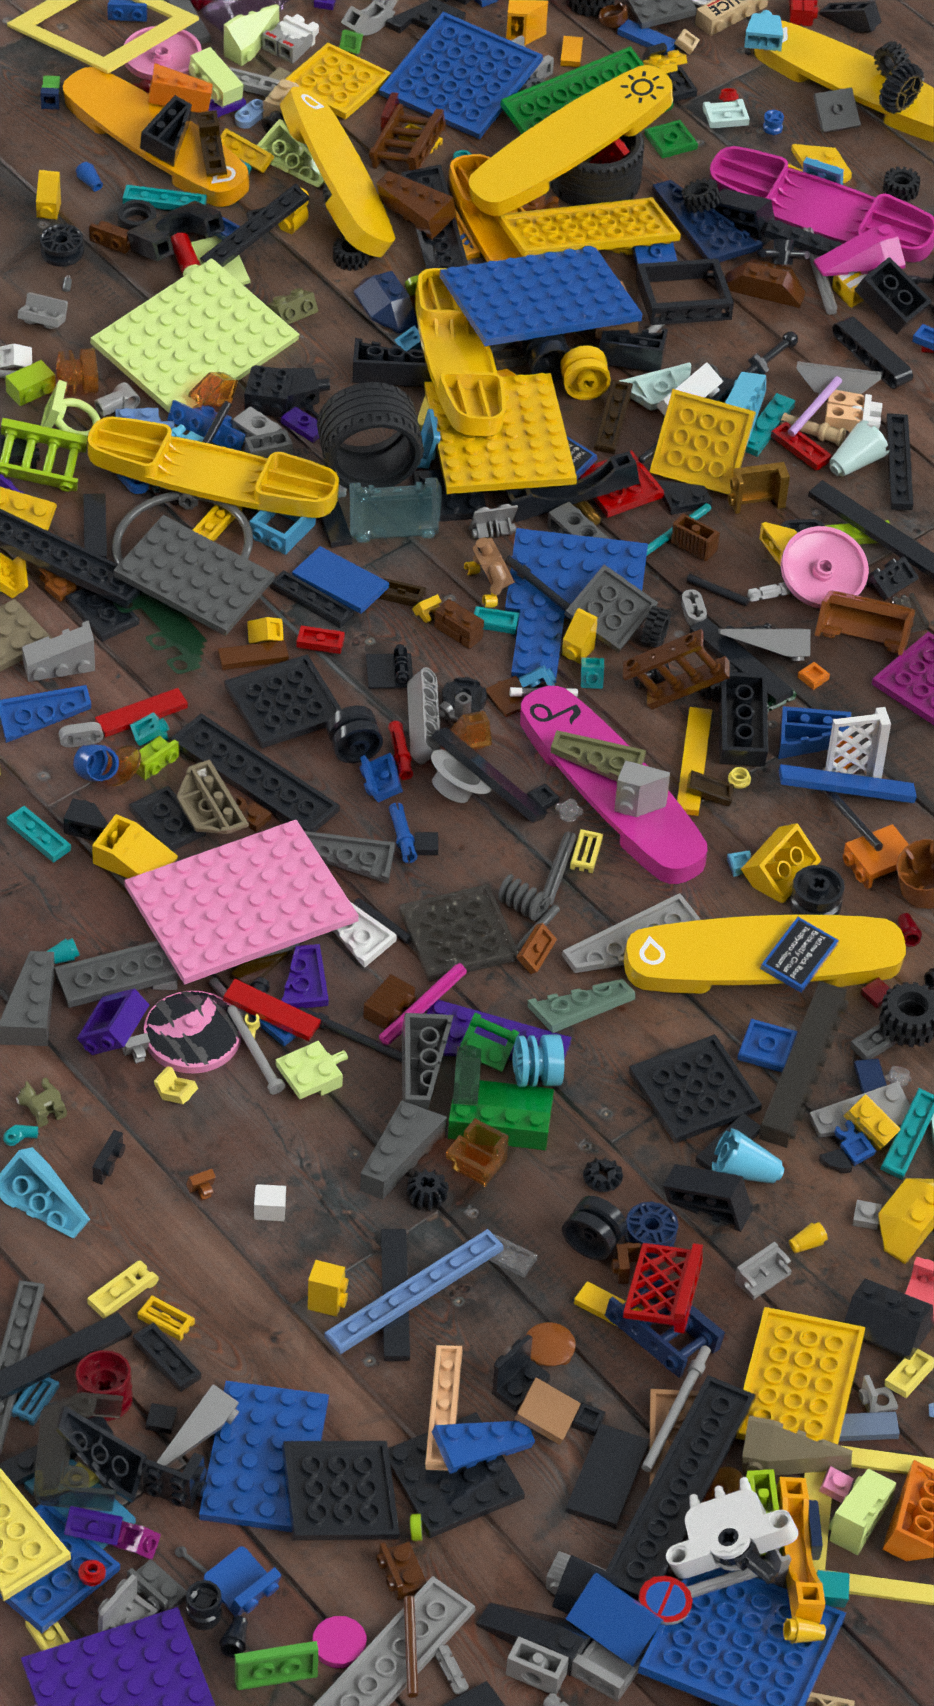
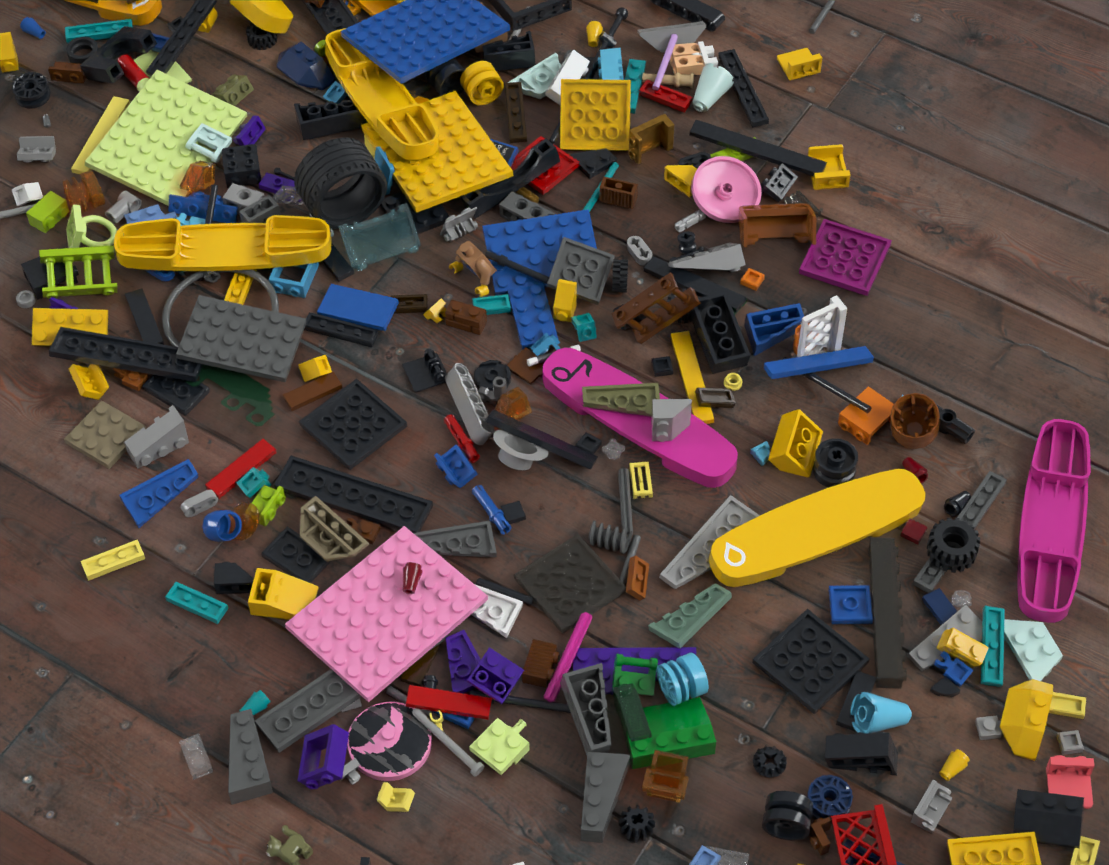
camera: 15 degrees left, 5 degrees up
(144, 293) = (108, 119): none -> light yellow tile
(244, 350) = (210, 138): none -> light aqua plate
(280, 869) = (411, 576): none -> dark red cone
(294, 356) = (250, 132): none -> dark purple tile
(305, 388) = (269, 154): black torso -> none
(306, 436) = (288, 195): none -> clear plate
(320, 639) = (361, 362): red plate -> none
(332, 996) = (495, 675): none -> dark purple slope
(354, 734) = (422, 437): black wheel -> none
(664, 739) = (662, 366): none -> black tile
(718, 590) = (651, 230): black bar -> none
(746, 350) = (594, 30): none -> yellow cone
(752, 613) = (686, 242): none -> black wheel
(799, 954) = (847, 520): black tile -> none

